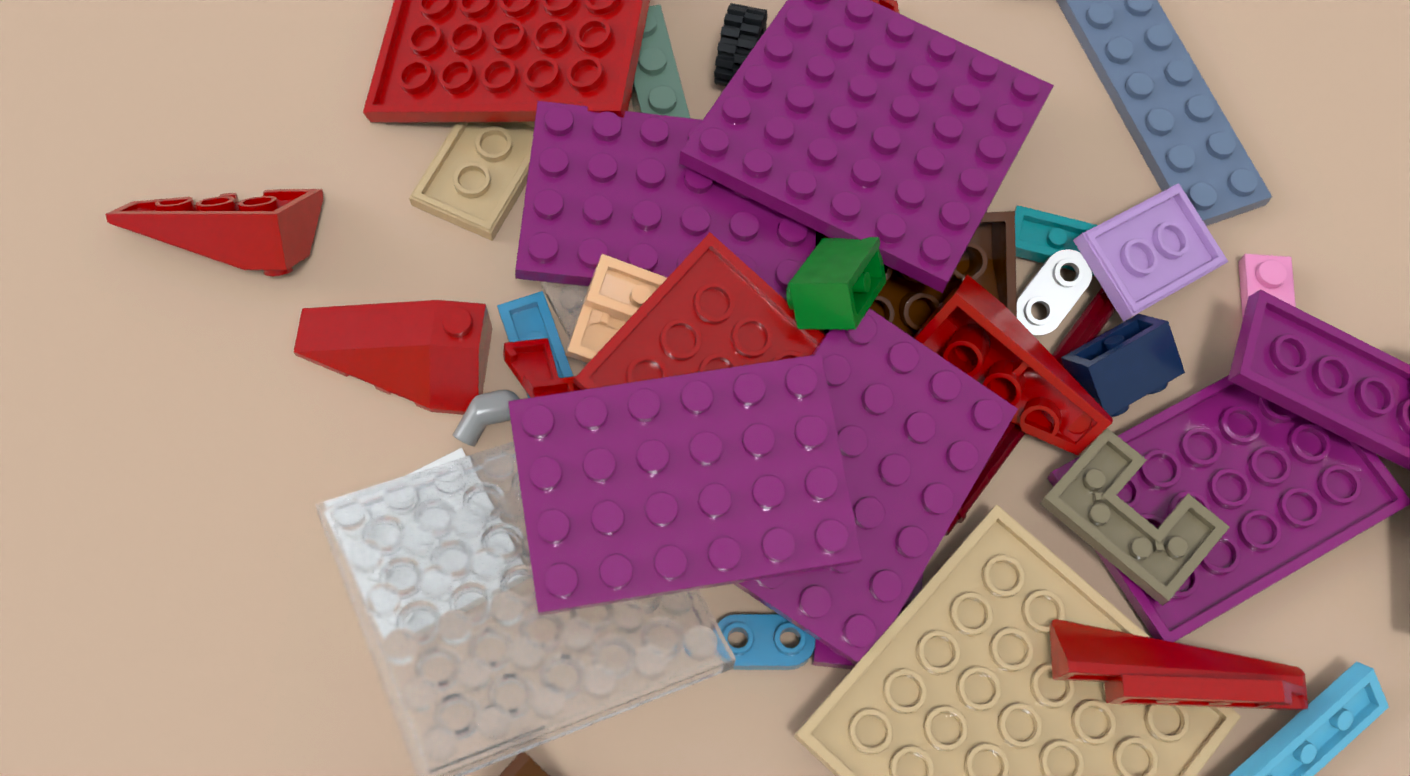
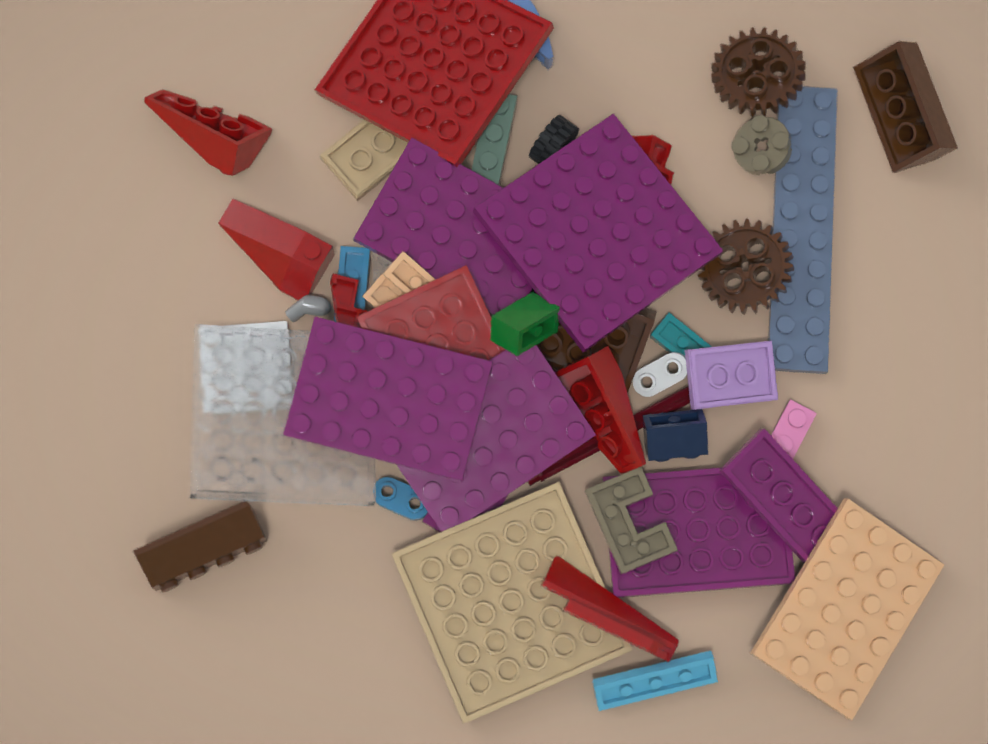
camera: 25 degrees right, 10 degrees up
(1112, 131) = (750, 291): none -> reddish brown gear

